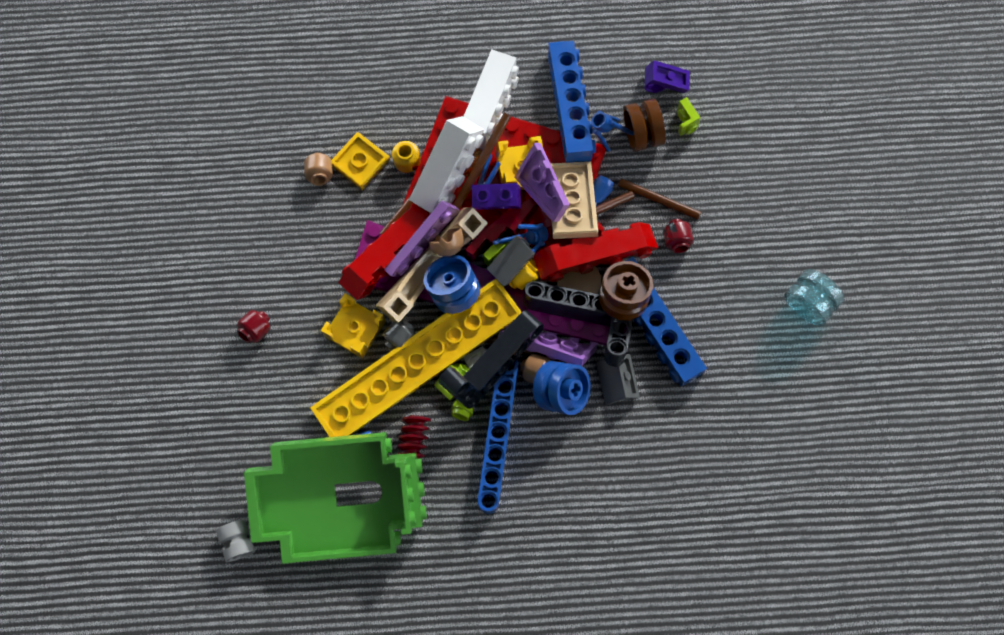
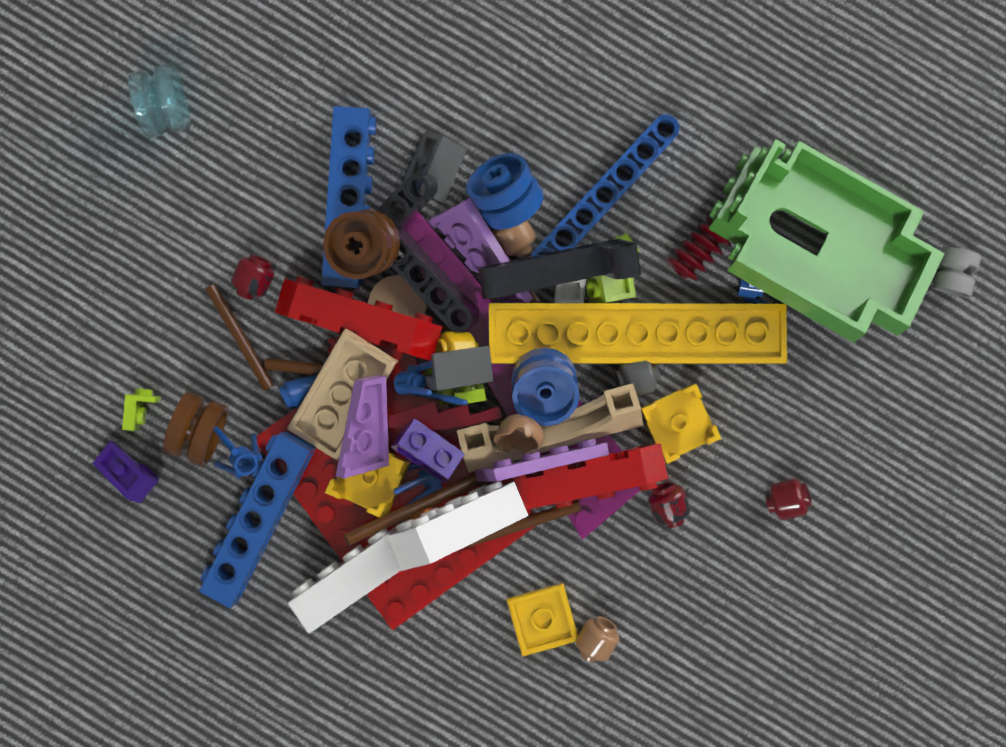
camera: 145 degrees left, 15 degrees up
(326, 273) = (669, 504): none -> dark red head
(406, 156) = (486, 593): yellow head -> none

